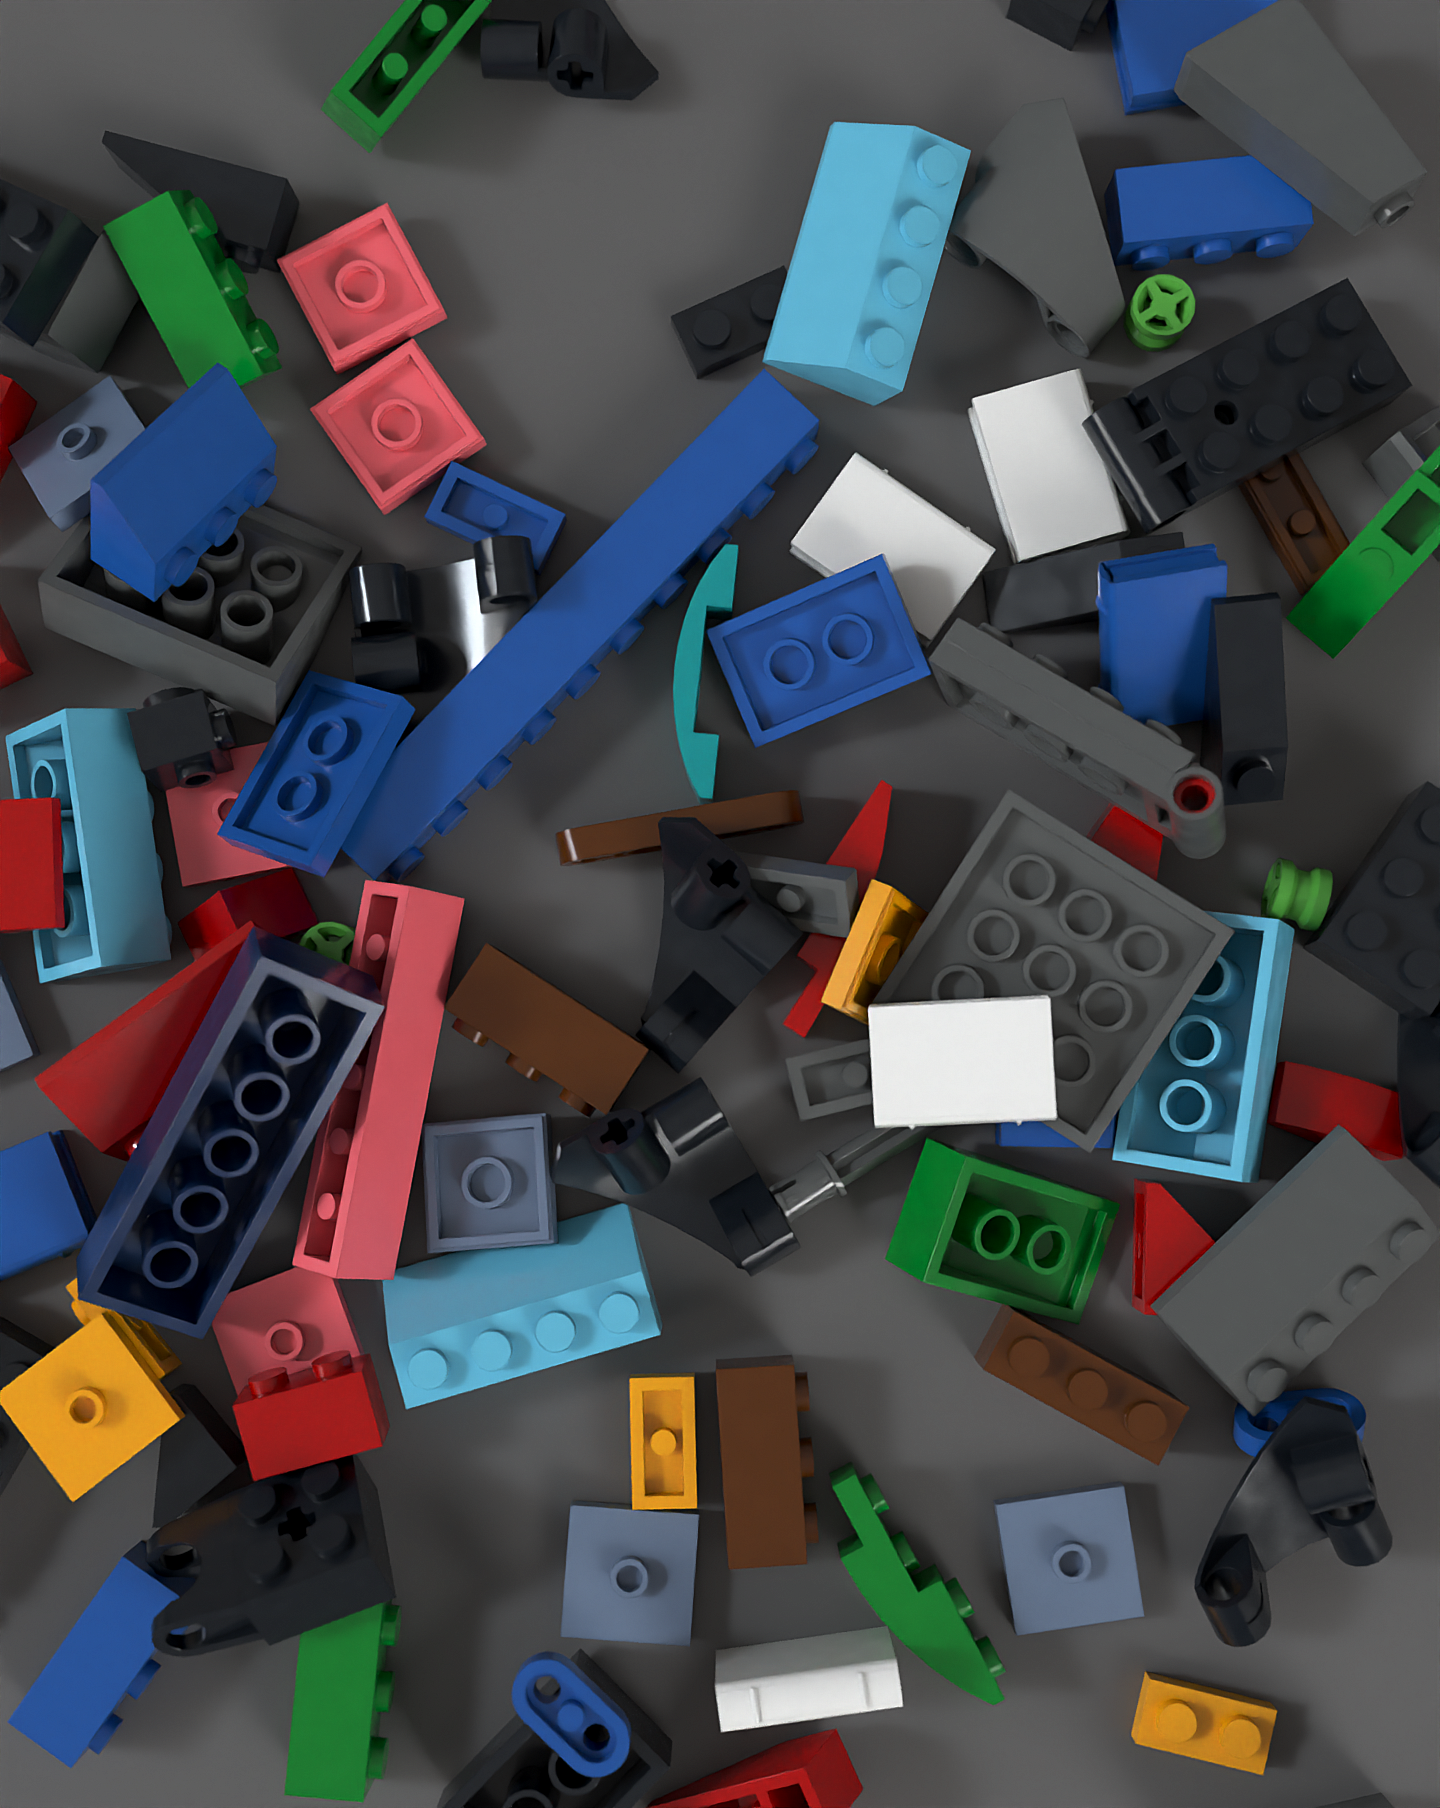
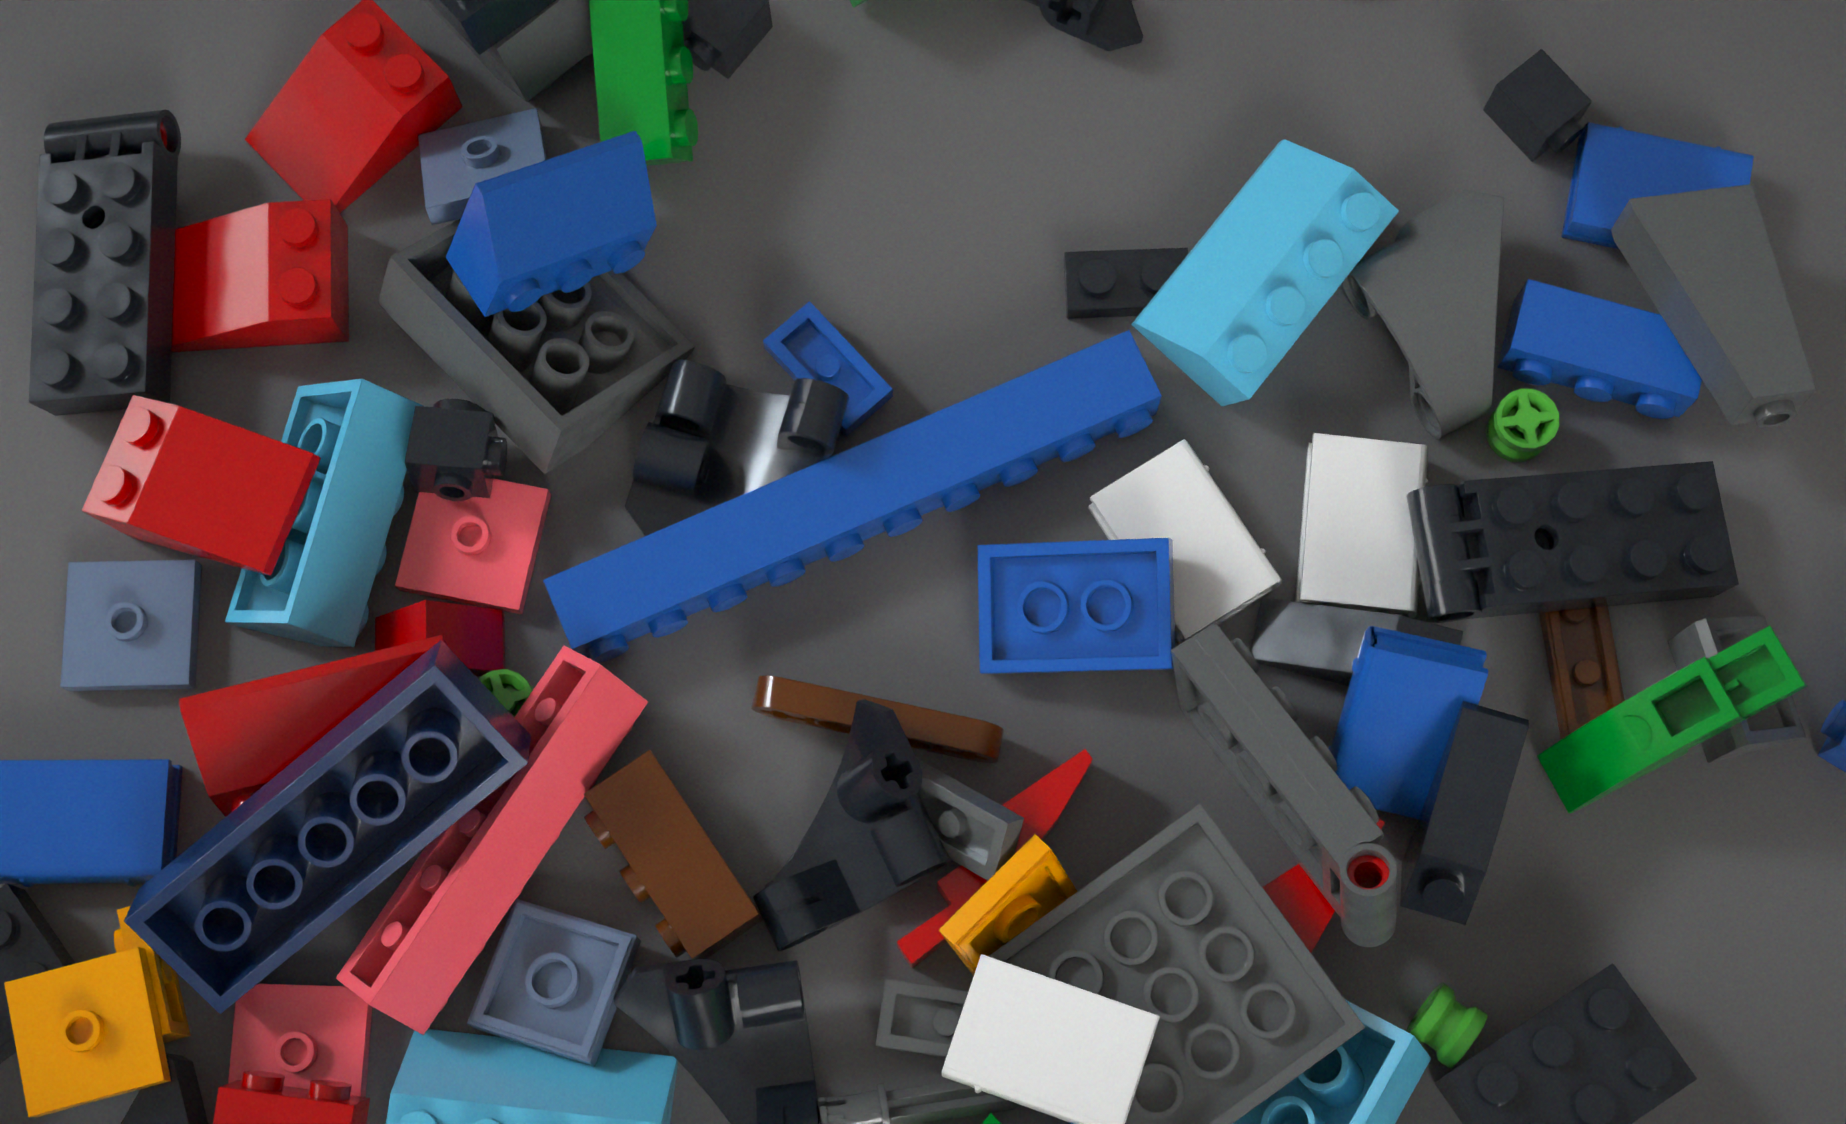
camera: 20 degrees right, 10 degrees down
(316, 772) = (562, 529): blue plate -> none
(362, 288) = (794, 120): coral plate -> none
(398, 426) = (774, 253): coral plate -> none
(714, 601) = (996, 520): teal slope -> none

